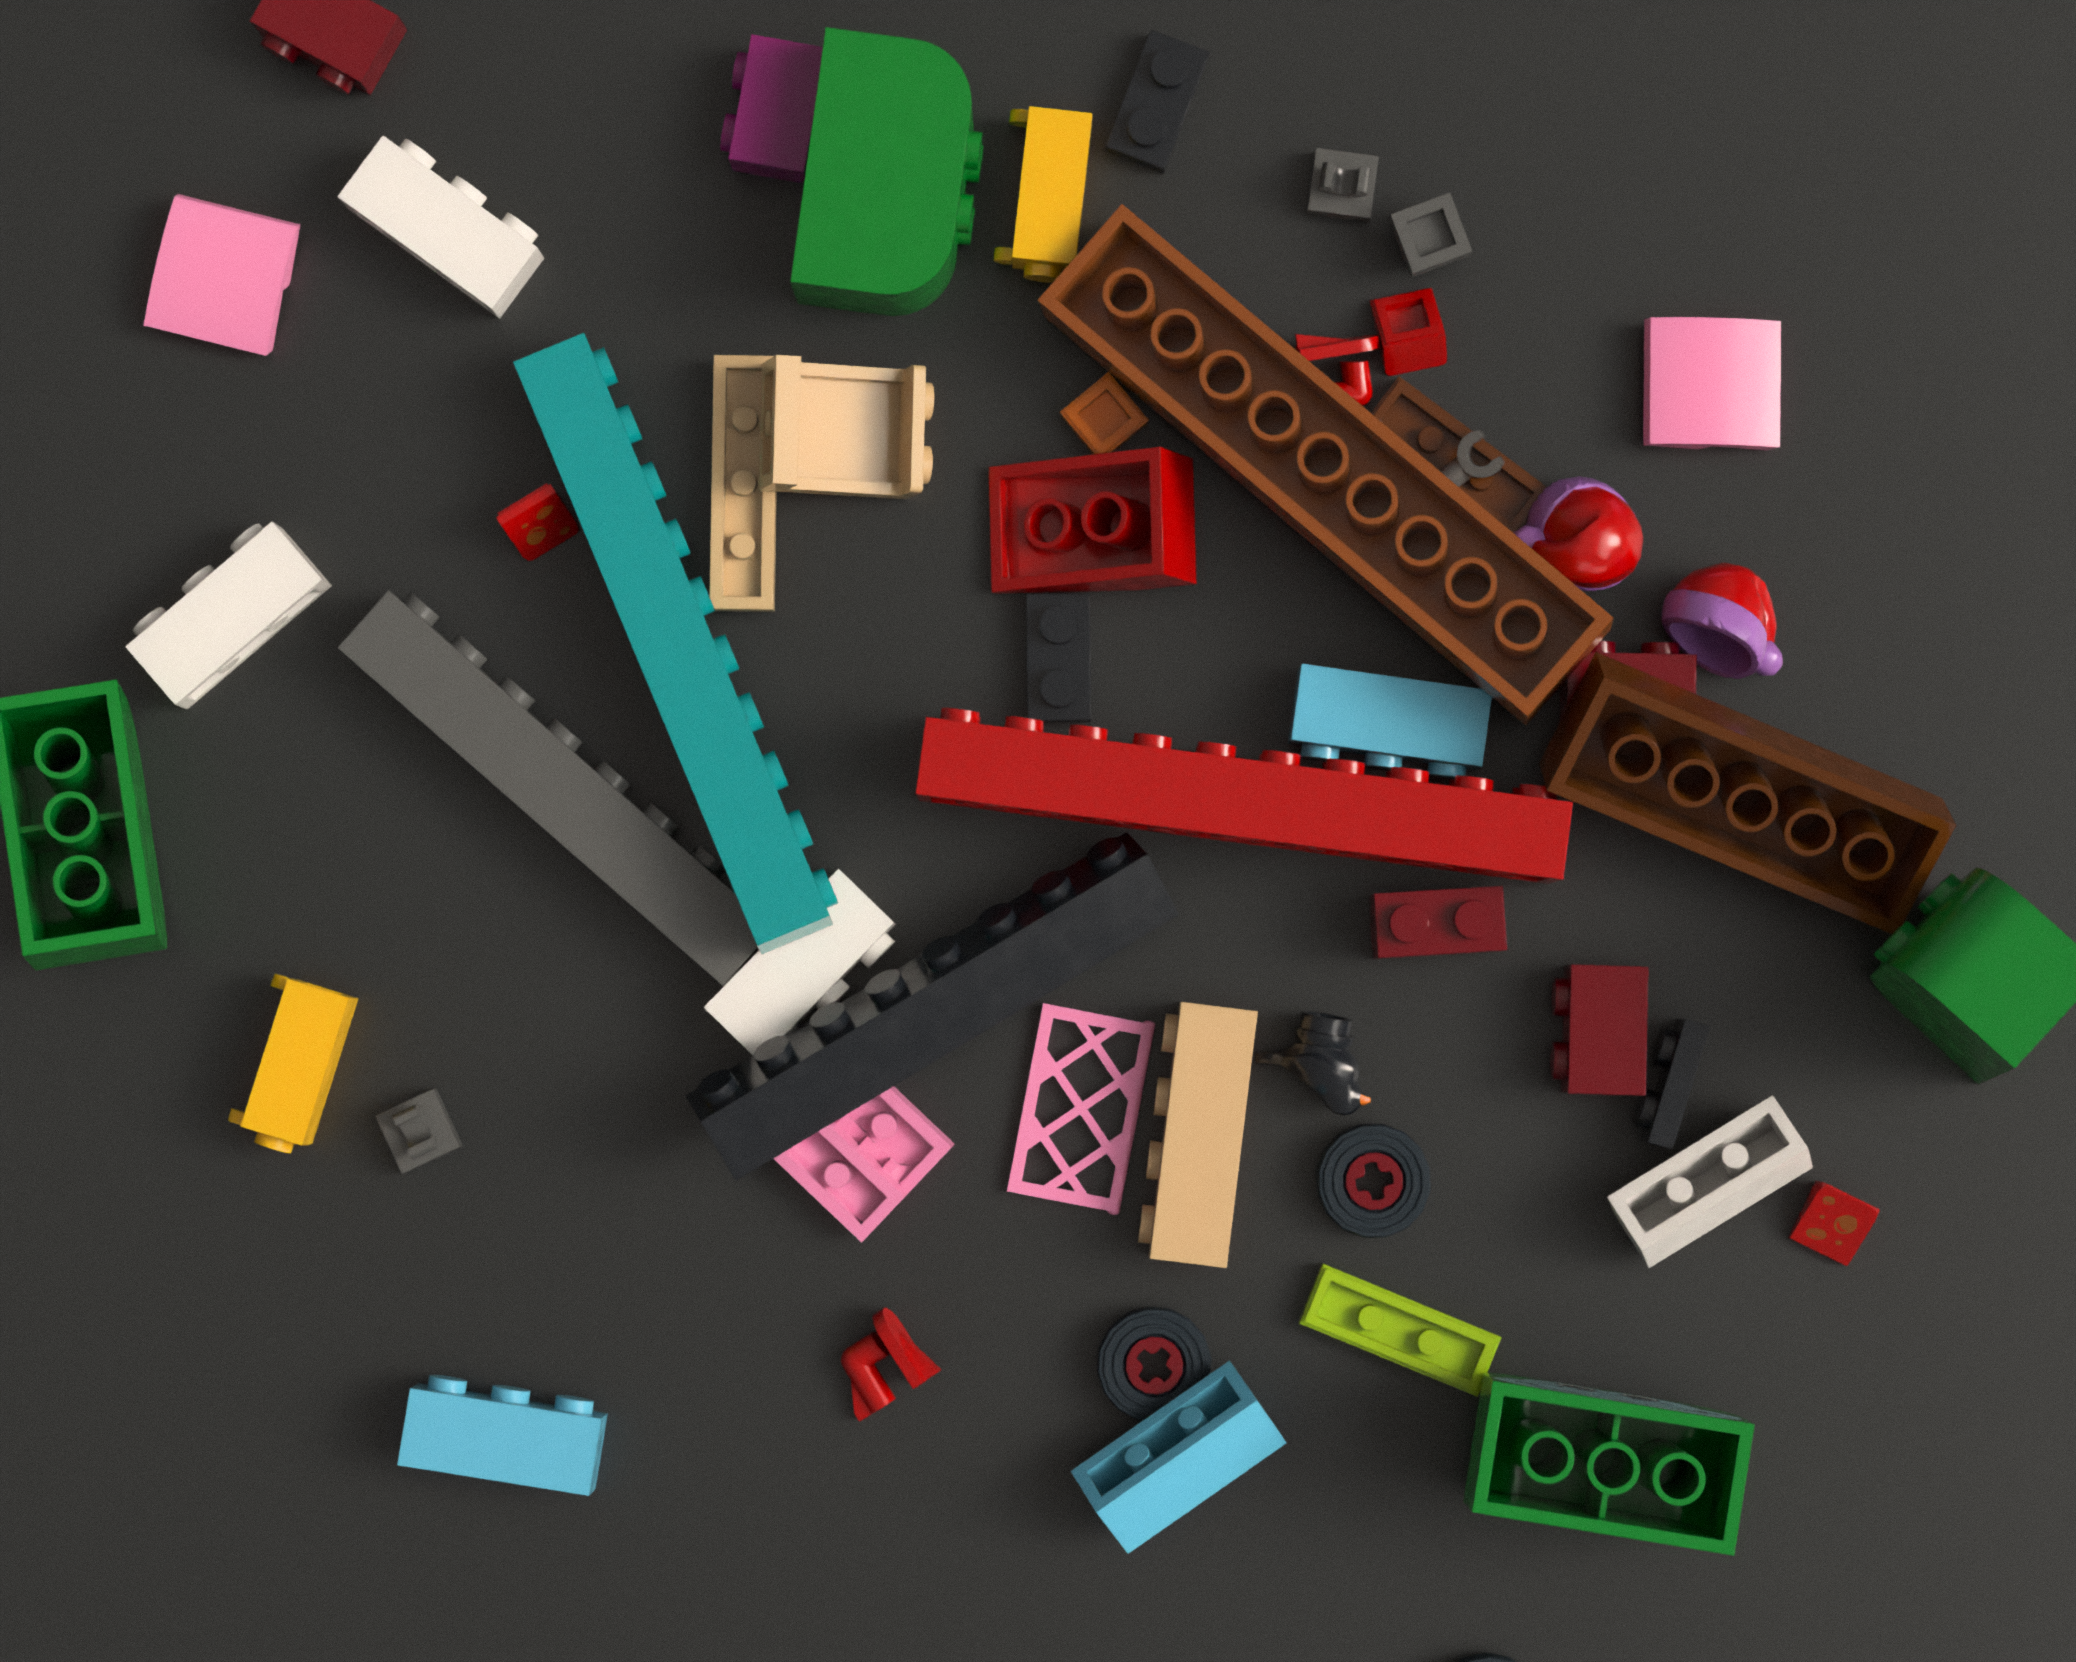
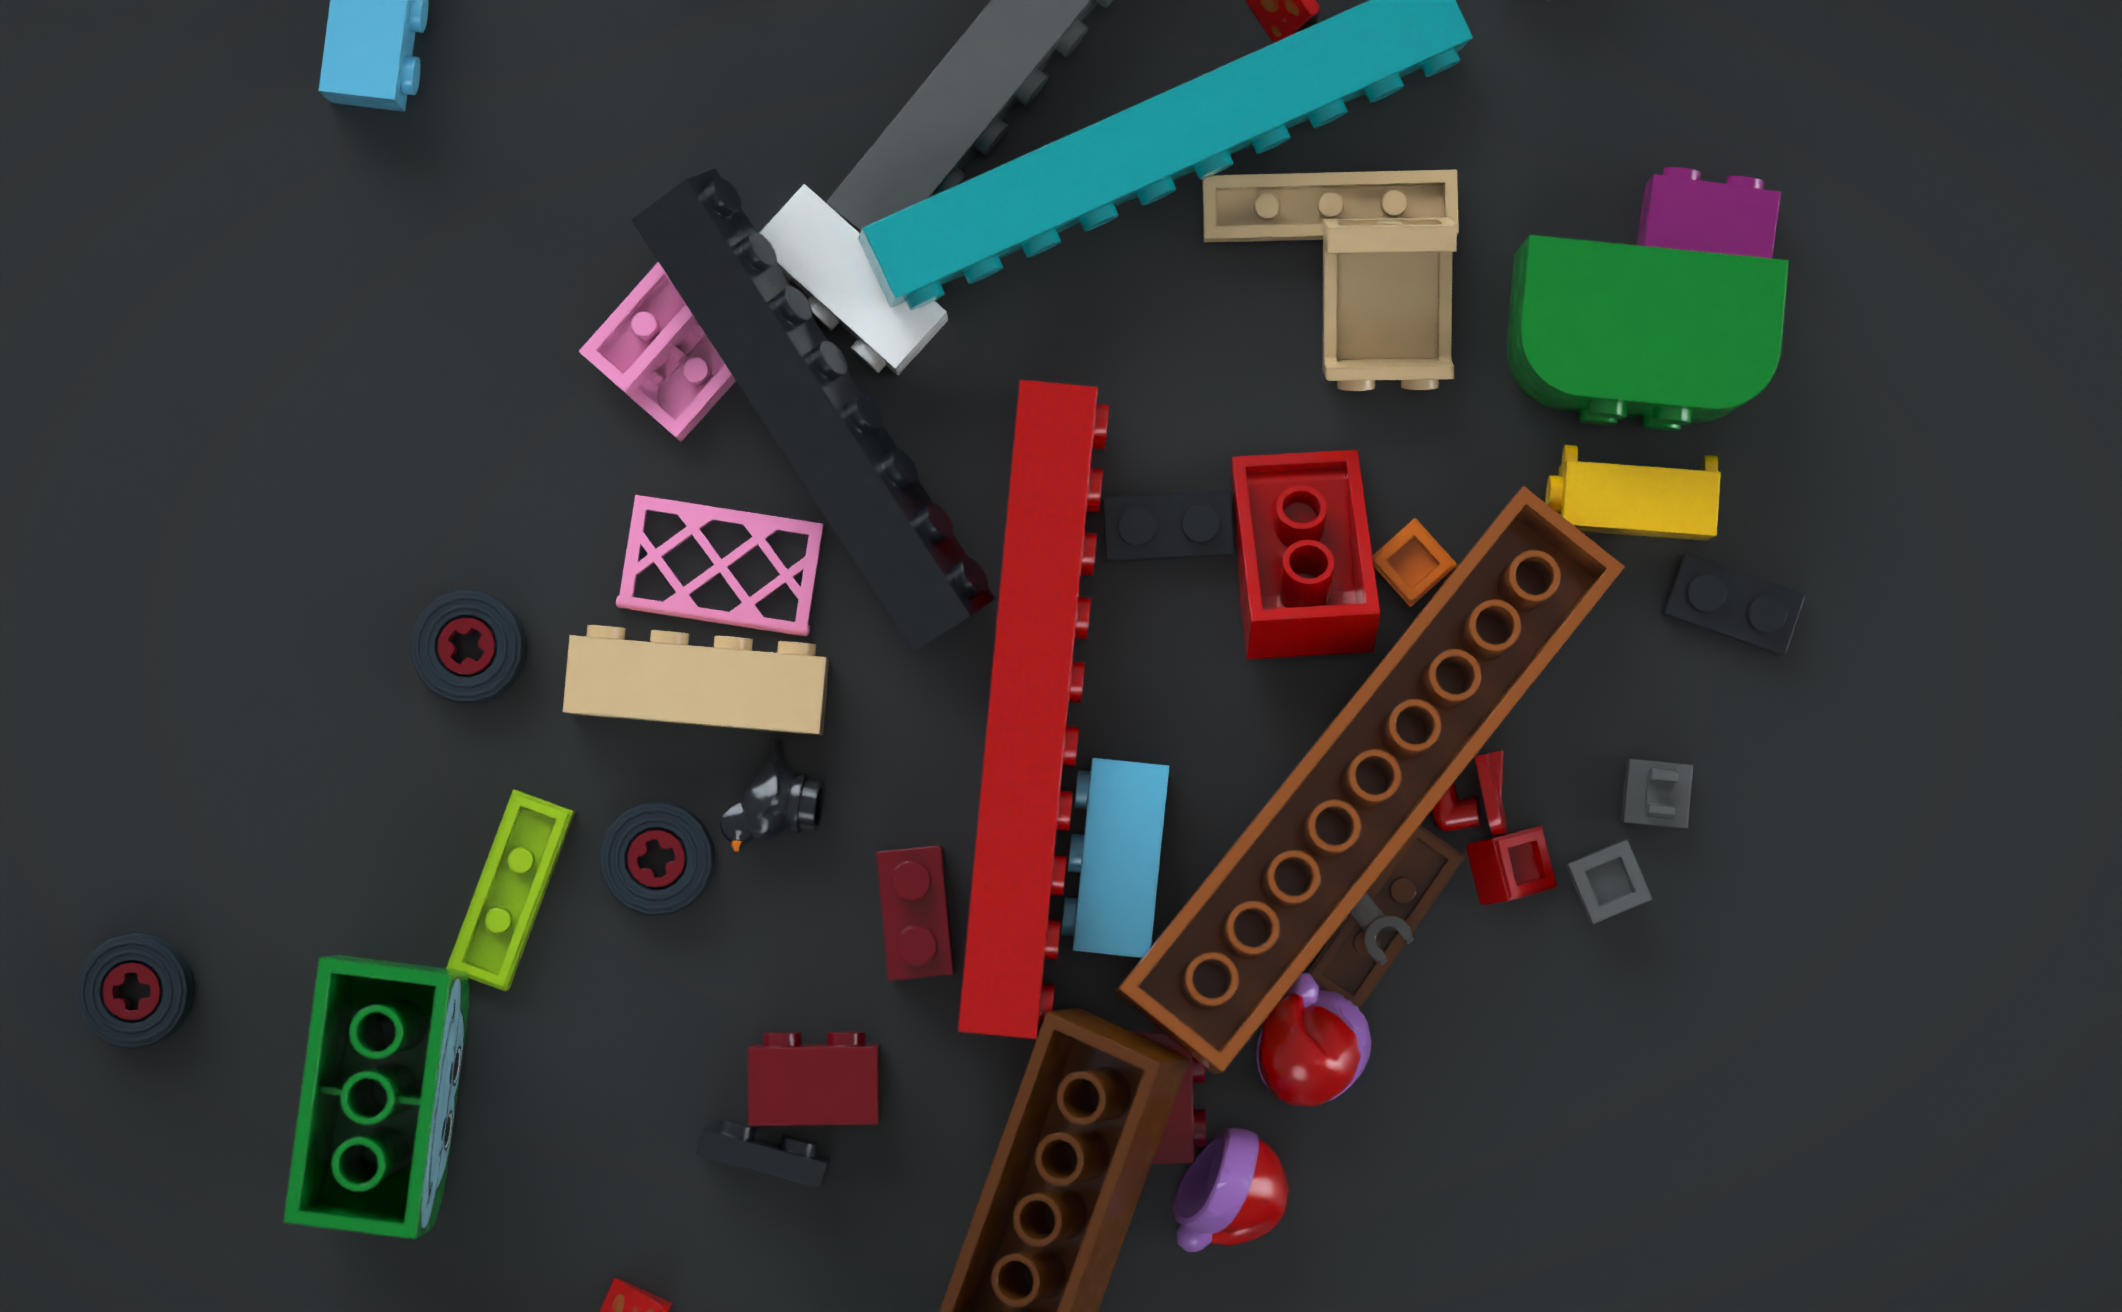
camera: 85 degrees right, 0 degrees up
(868, 1386) = (484, 382): red piece -> none
(1178, 1457) = (374, 671): medium azure brick -> none
(1710, 1181) = (664, 1193): white brick -> none
(1712, 383) = (1471, 1173): bright pink slope -> none

